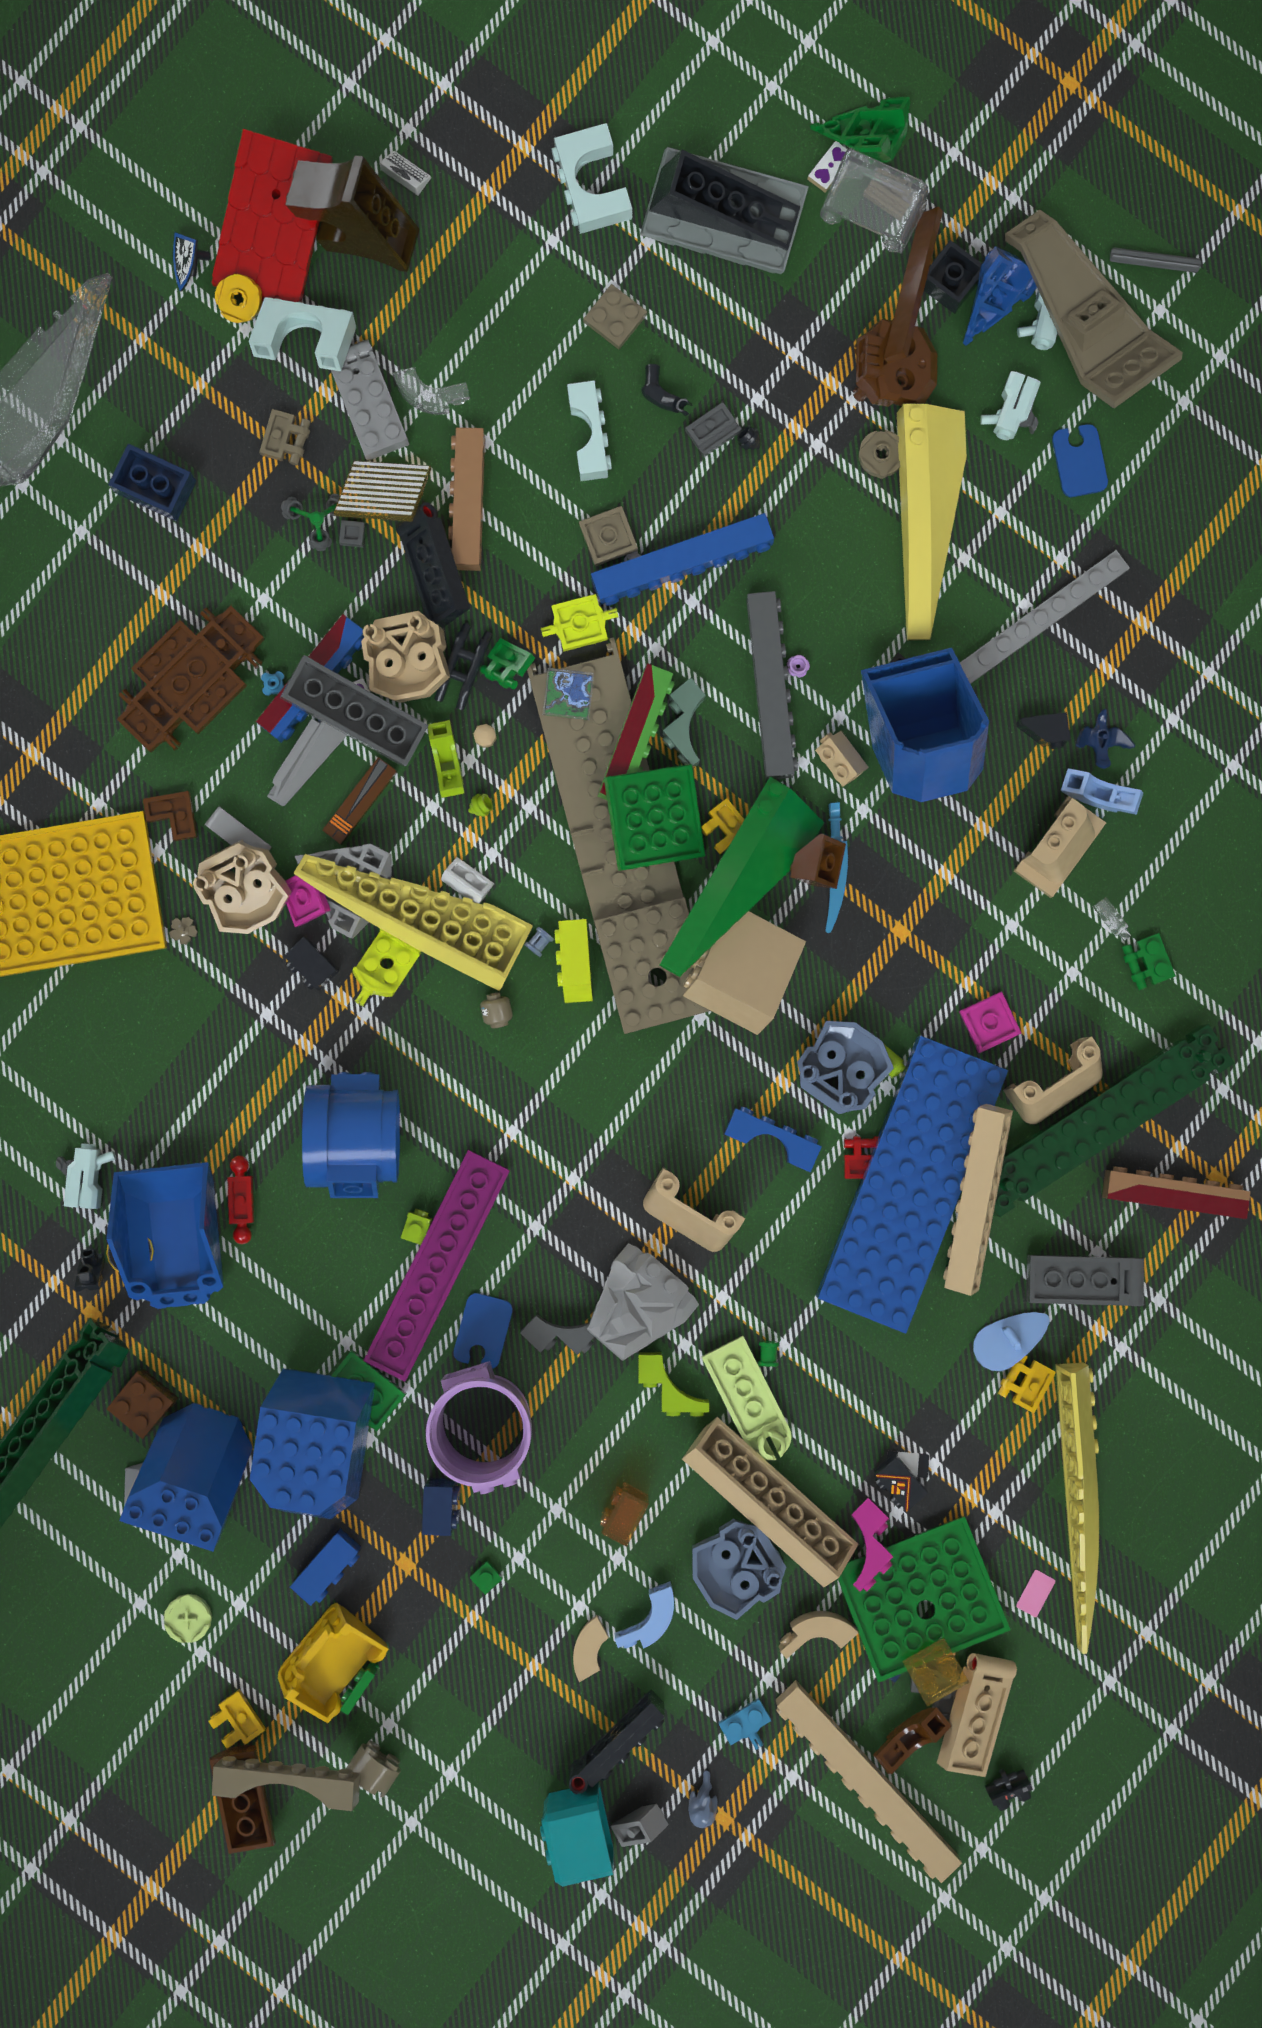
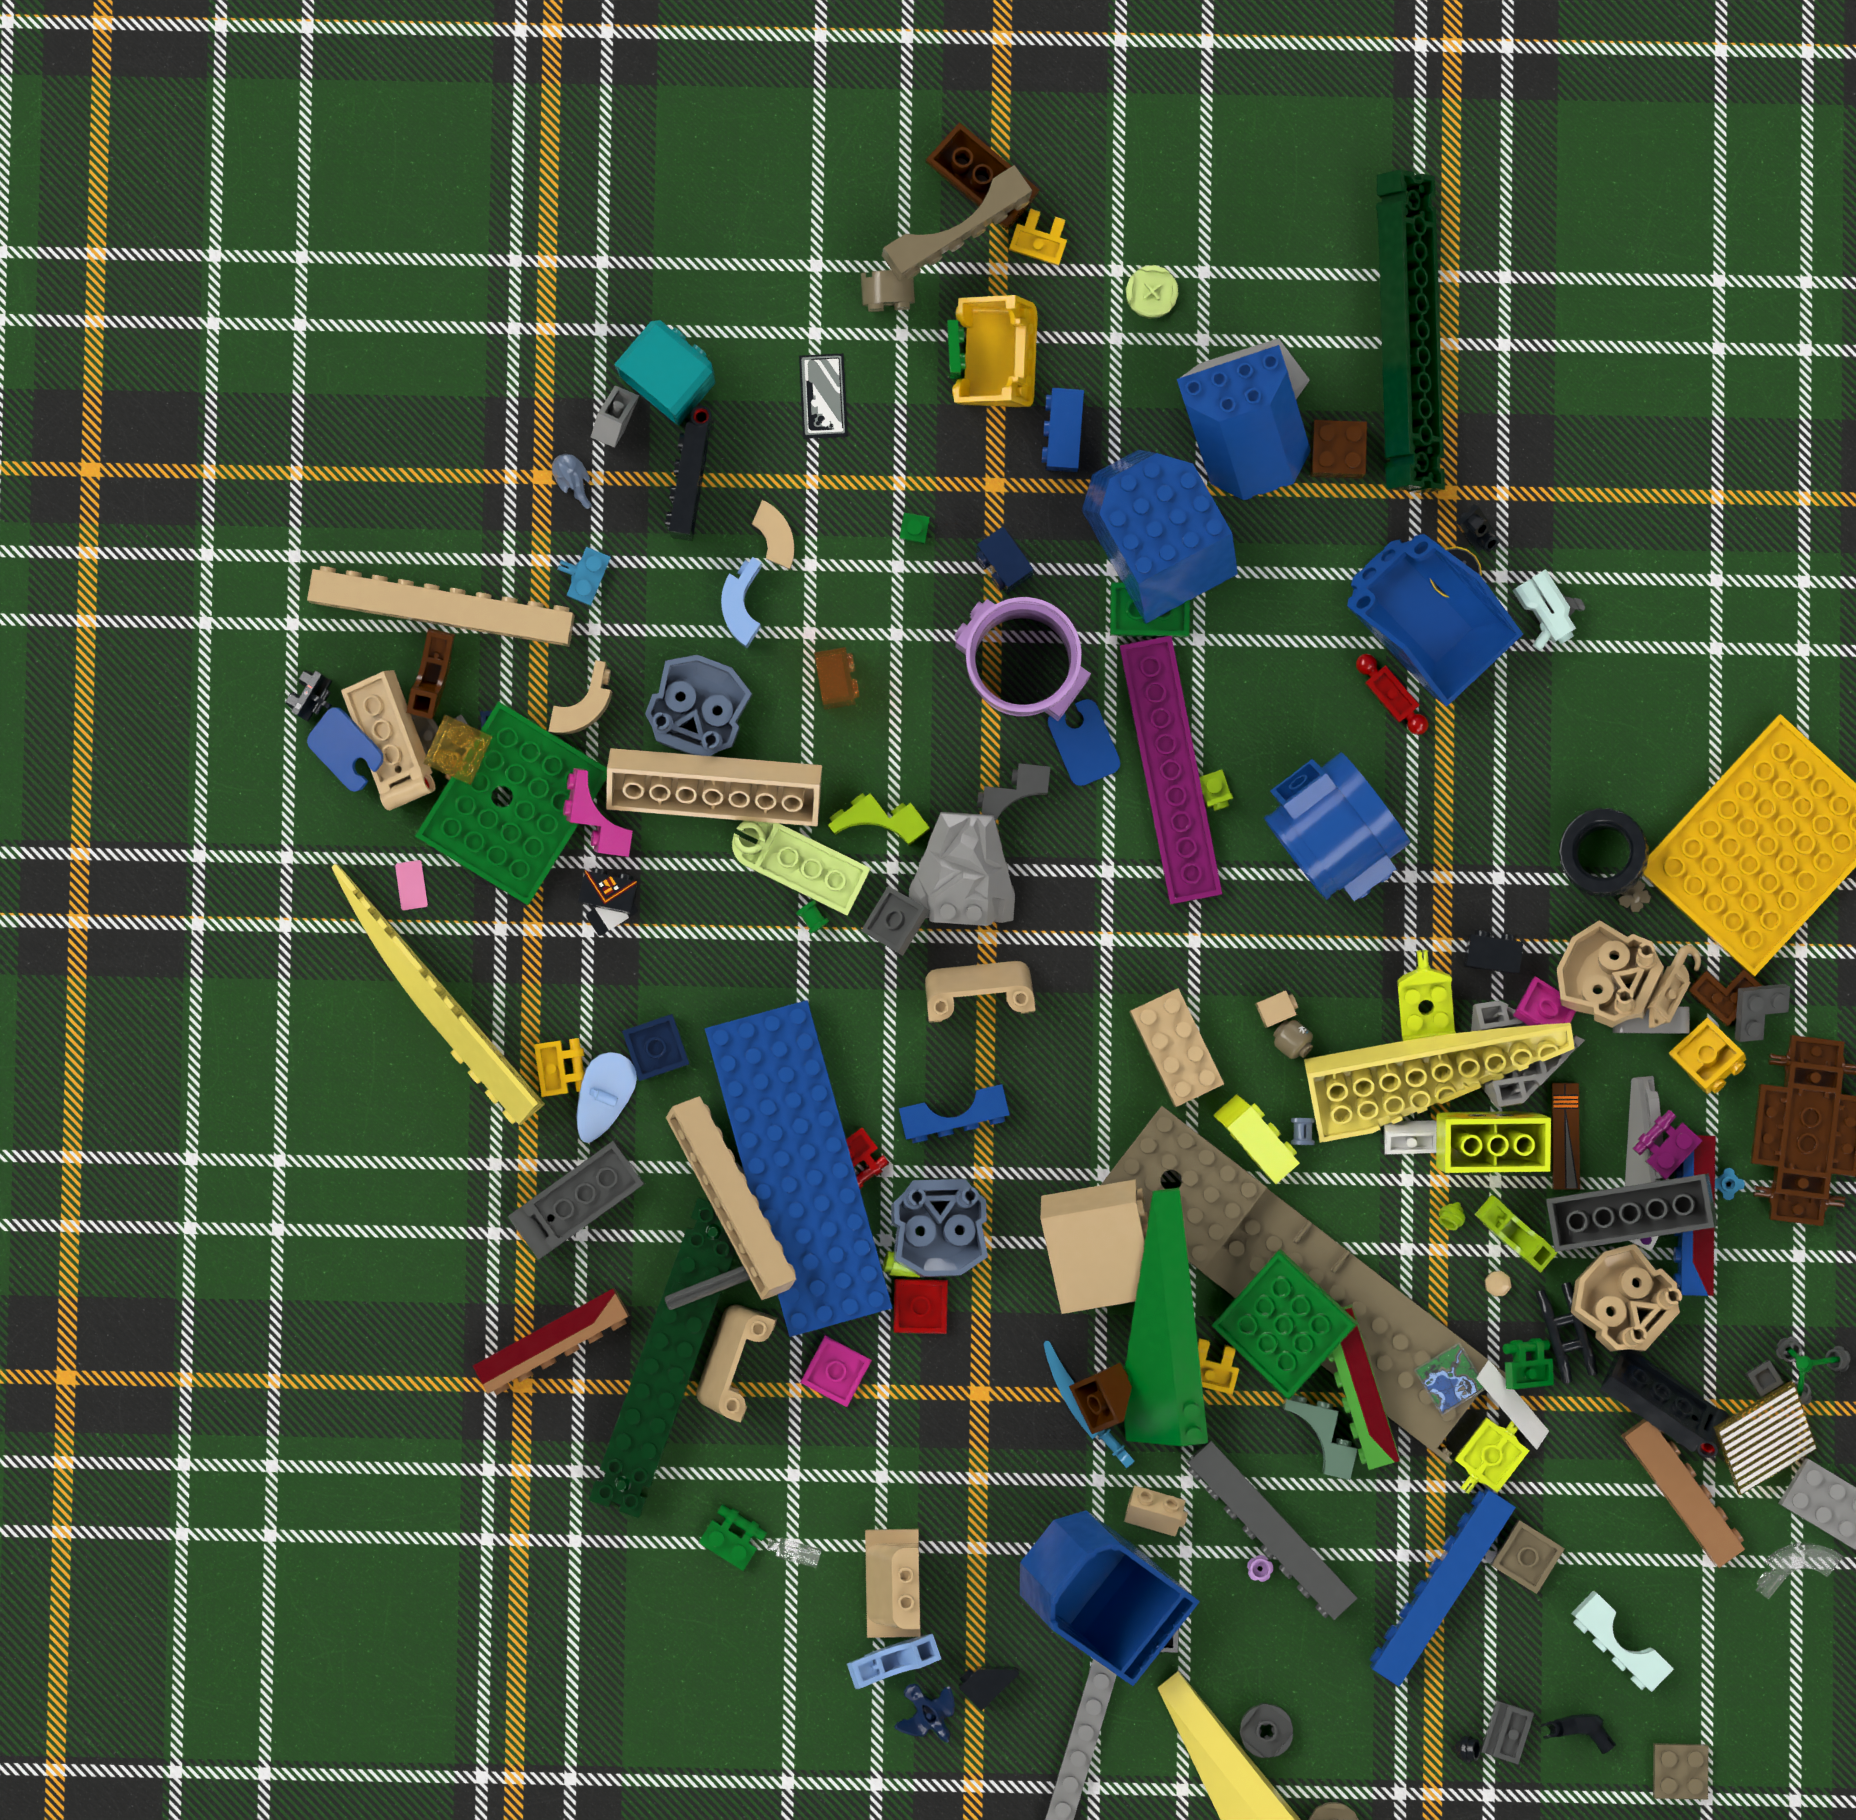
camera: 145 degrees right, 0 degrees up
(160, 790) = (1754, 1004): none -> dark grey plate
(176, 1004) = (1598, 820): none -> black tyre
(205, 845) = (1671, 987): none -> tan plate
(218, 779) = (1708, 1056): none -> yellow plate
(290, 733) = (1674, 1148): none -> magenta plate
(412, 832) = (1493, 1142): none -> neon yellow brick
(478, 1723) = (823, 396): none -> sticker
(491, 1040) = (1277, 1008): none -> tan brick
(539, 644) = (1512, 1405): none -> white sticker
(582, 1066) = (1176, 1047): none -> tan brick
(712, 1306) = (895, 920): none -> dark grey plate
(871, 565) = (1281, 1727): none -> dark grey plate
(897, 1022) = (920, 1306): none -> red tile
(948, 1345) = (655, 1047): none -> dark blue plate
(1015, 1735) = (340, 744): none -> blue piece
(1044, 1149) = (706, 1288): none -> dark grey axle

